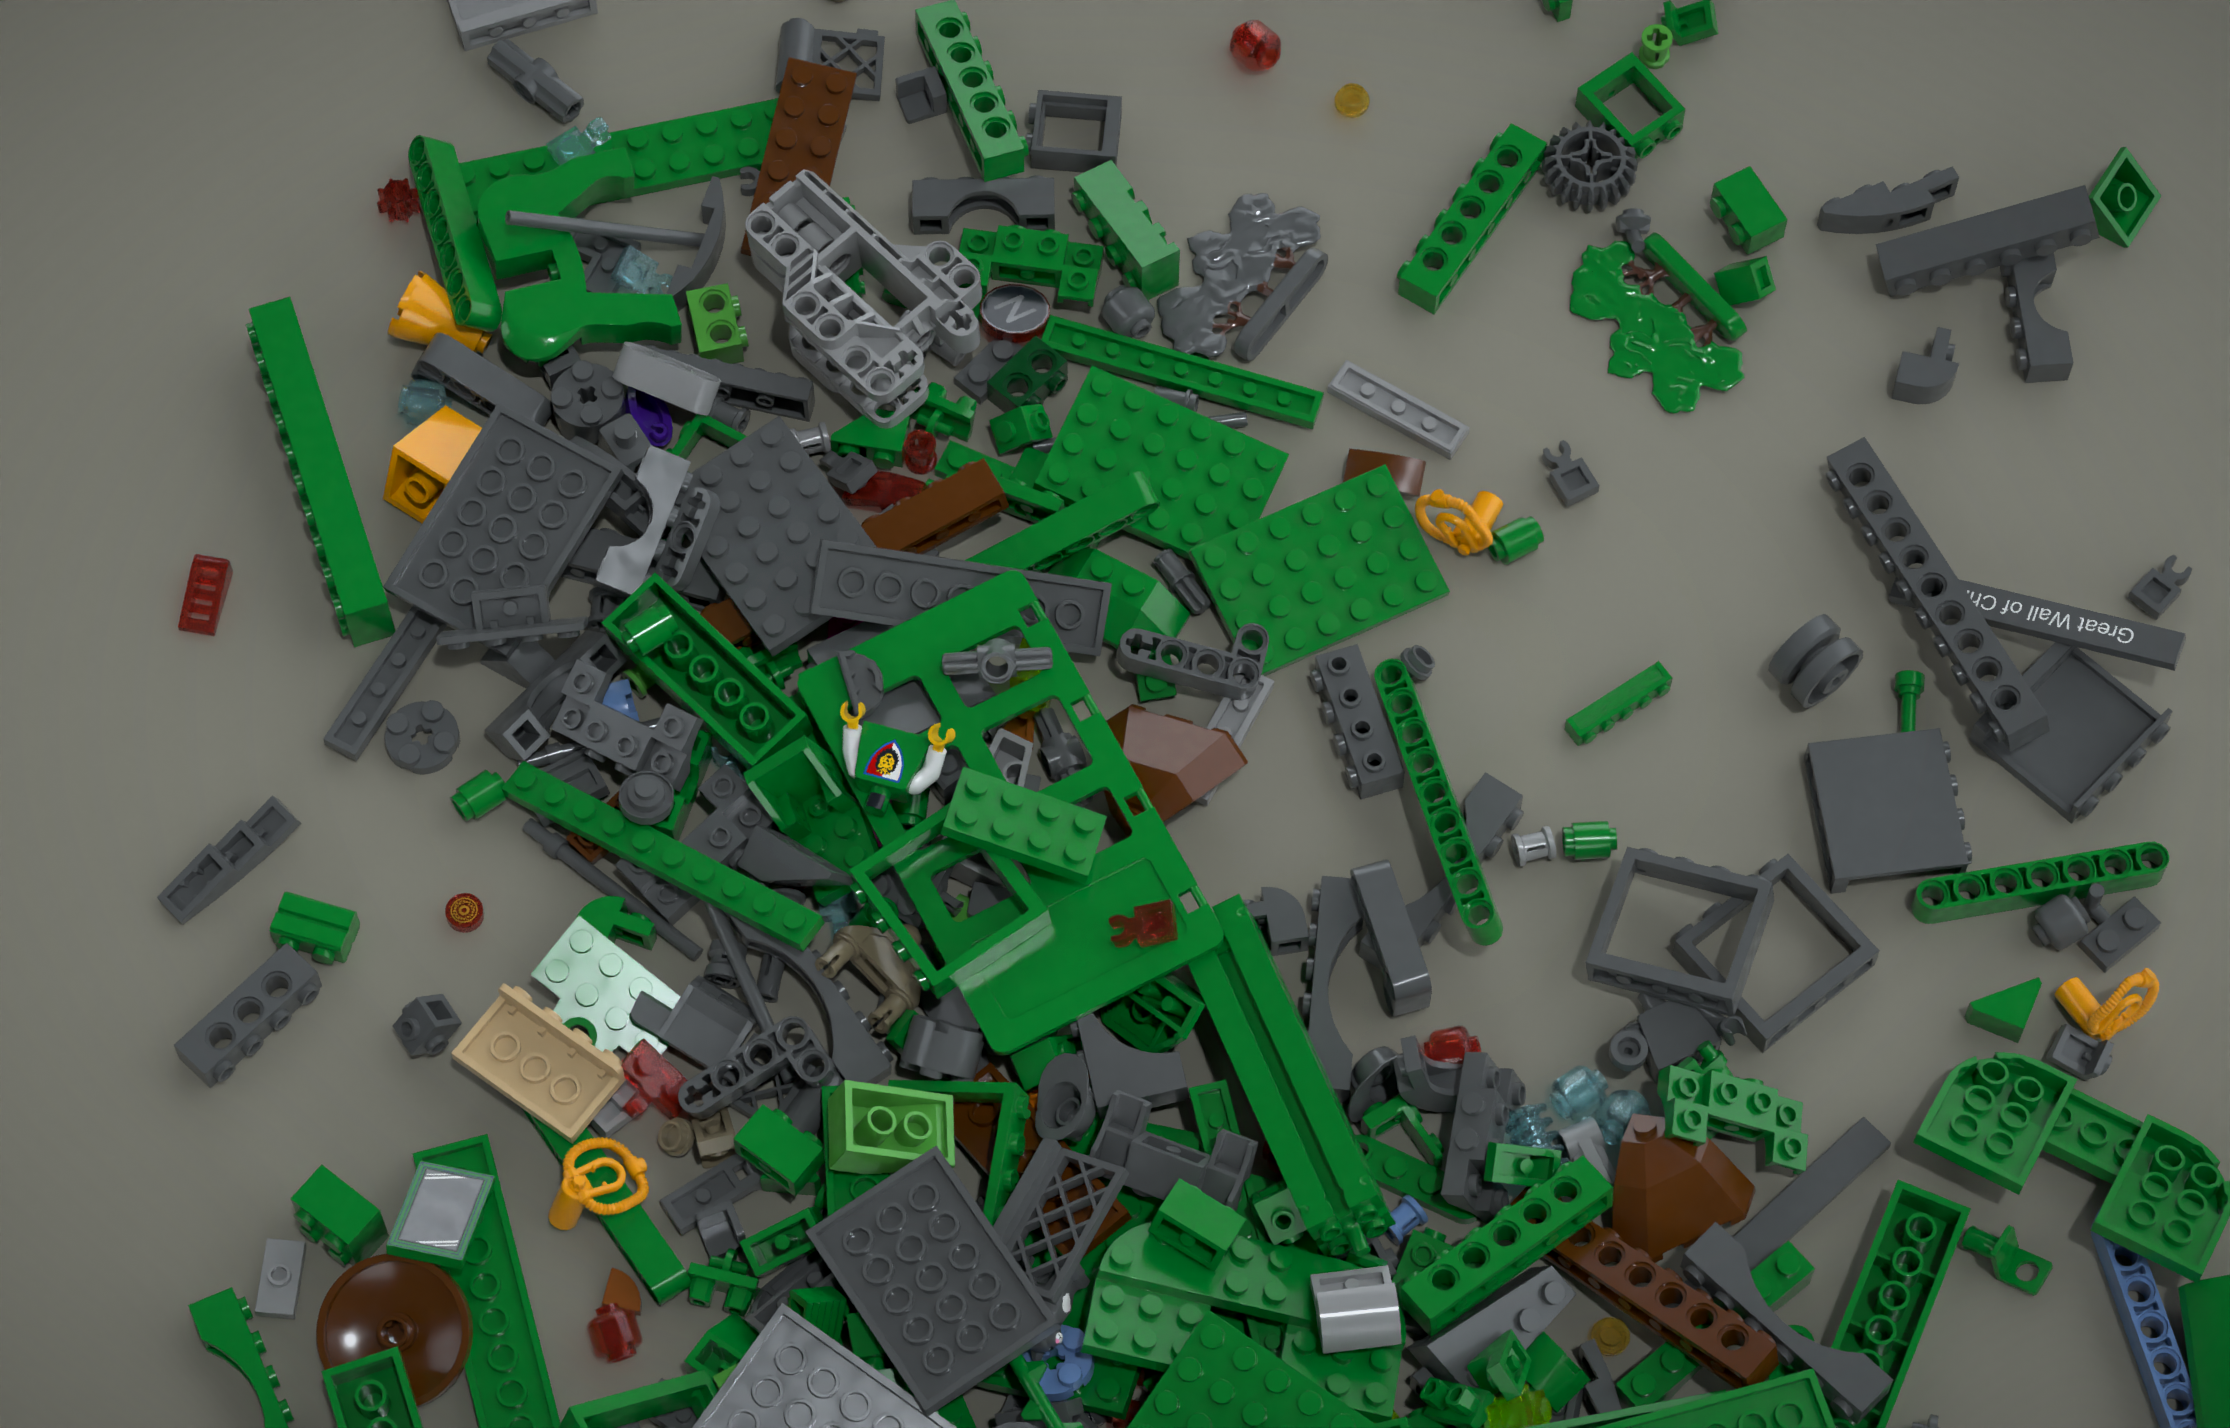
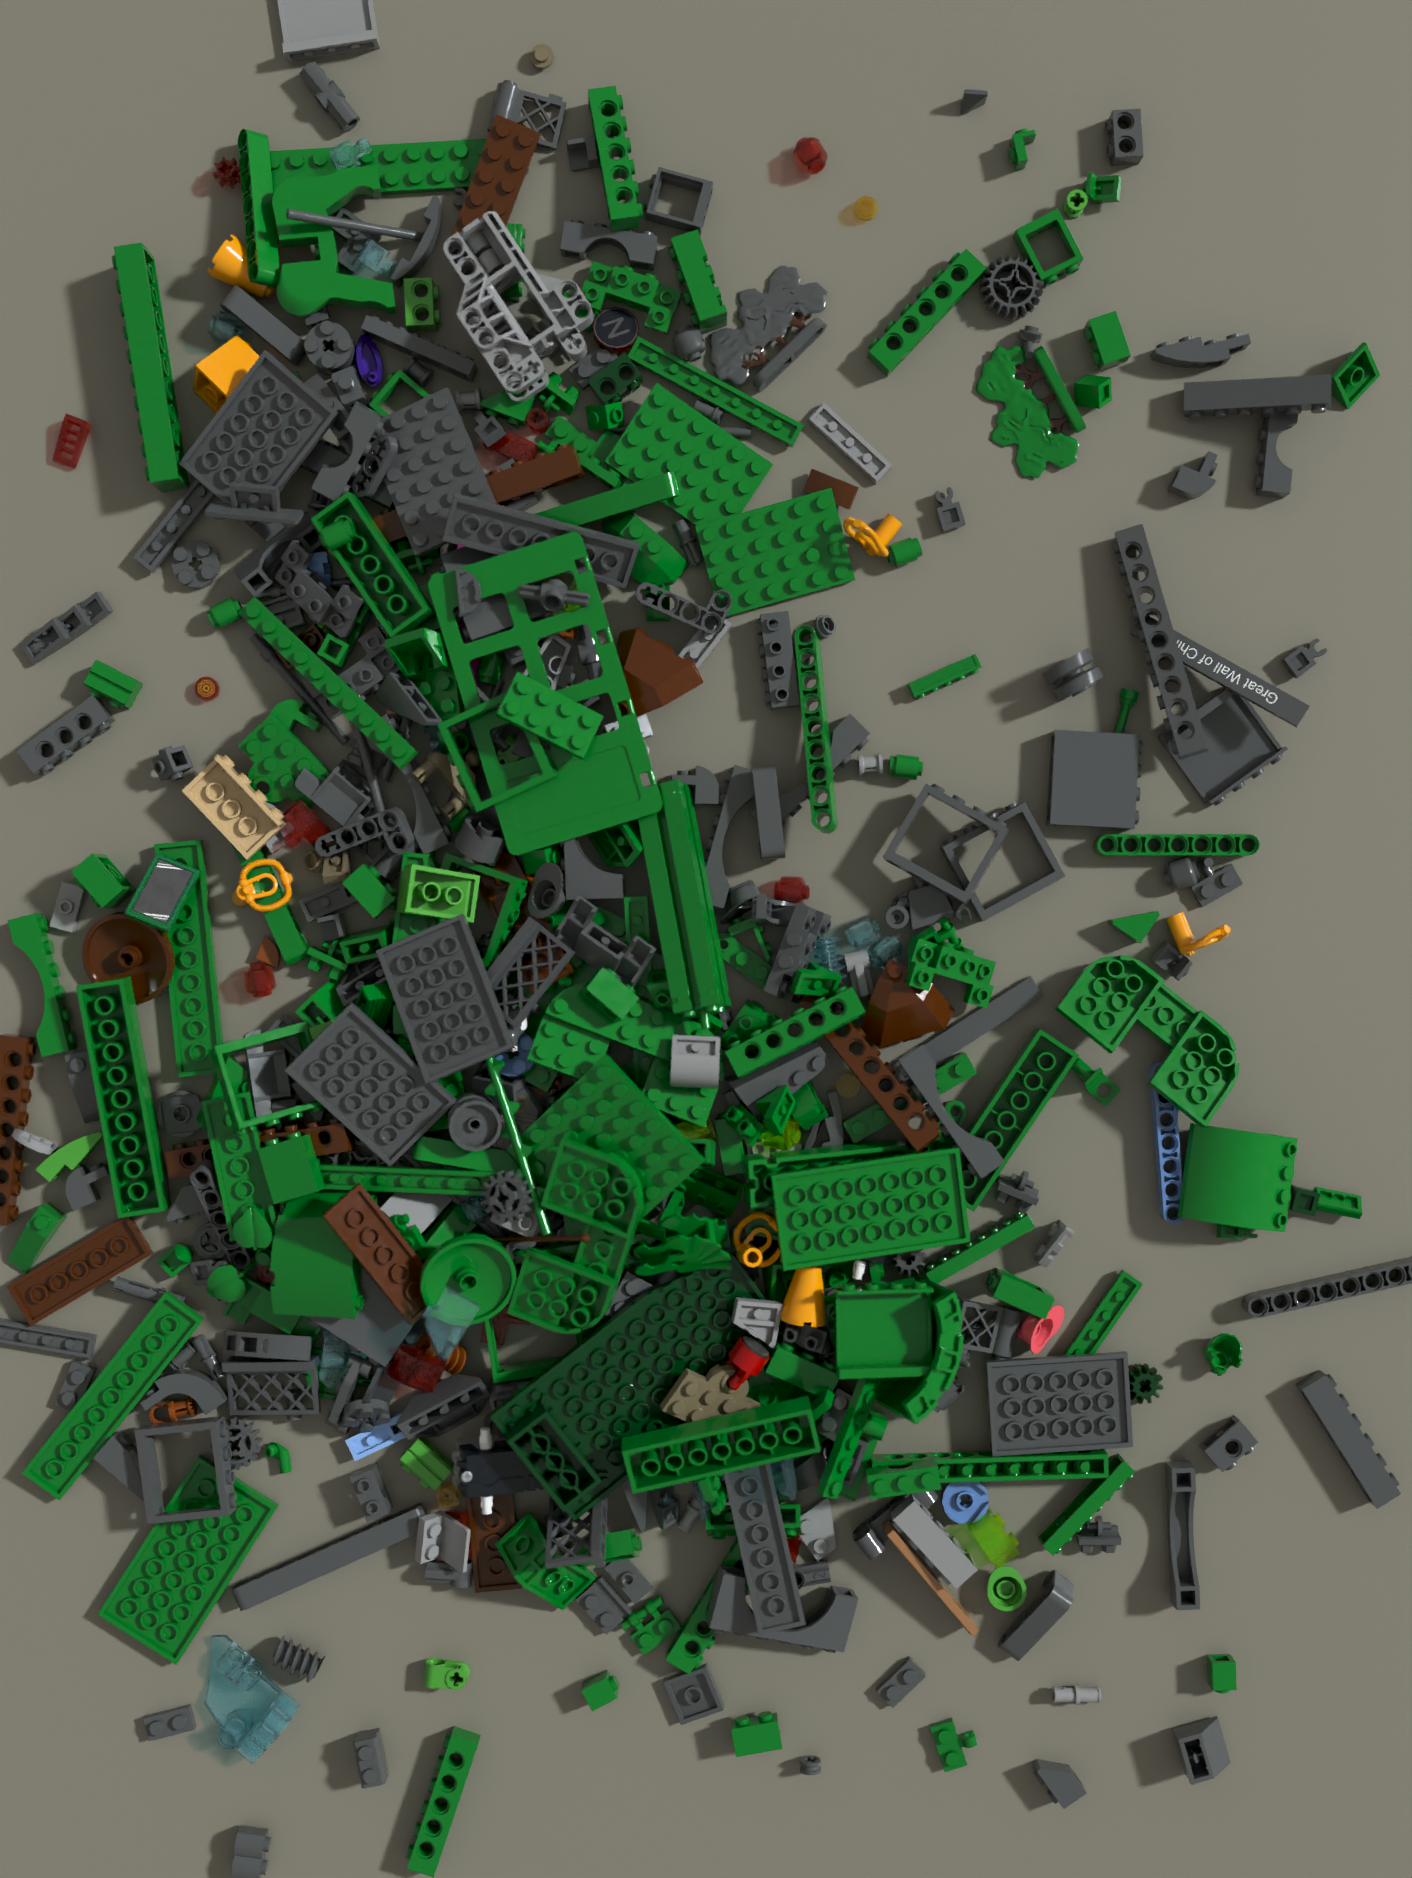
camera: 10 degrees right, 25 degrees up
(646, 797) = (322, 643): dark grey plate -> none
(666, 378) = (379, 344): light grey beam -> none
(890, 760) = (474, 652): torso -> none
(1151, 925) = (617, 793): clear red plate -> none
(1406, 1217) = (740, 992): medium blue bush -> none

